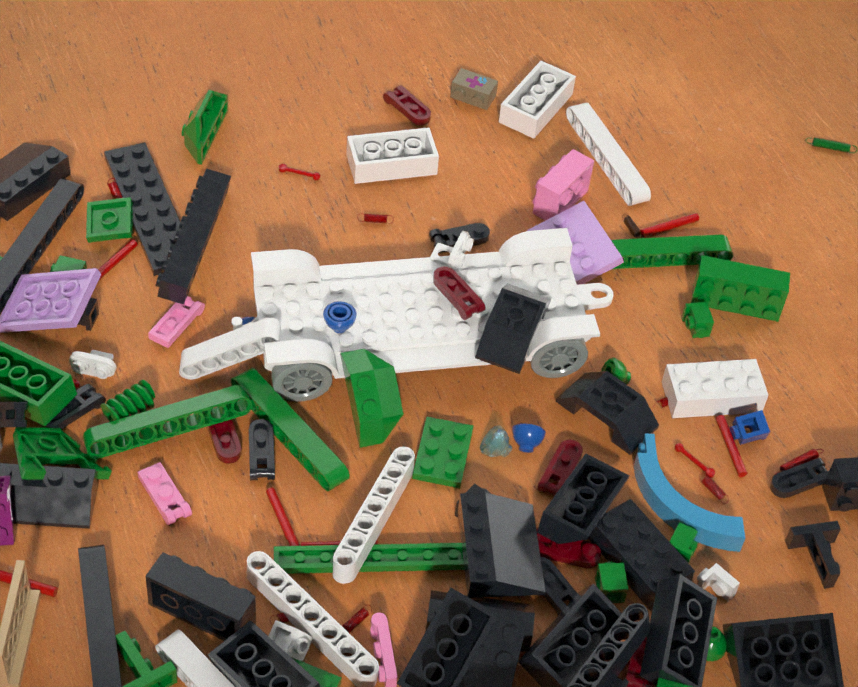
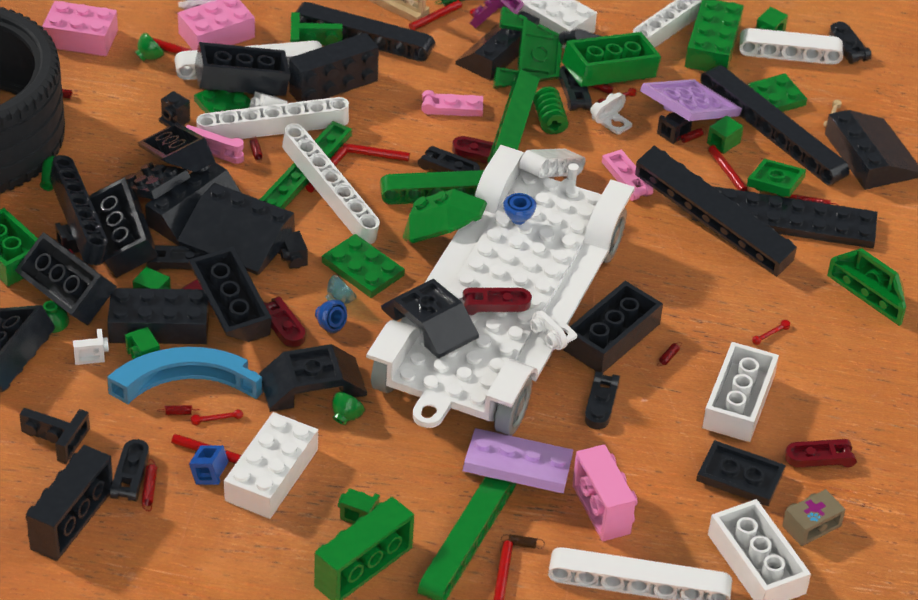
camera: 125 degrees right, 5 degrees down
(383, 241) = (614, 326): none -> black brick
(465, 137) = (741, 473): none -> black plate

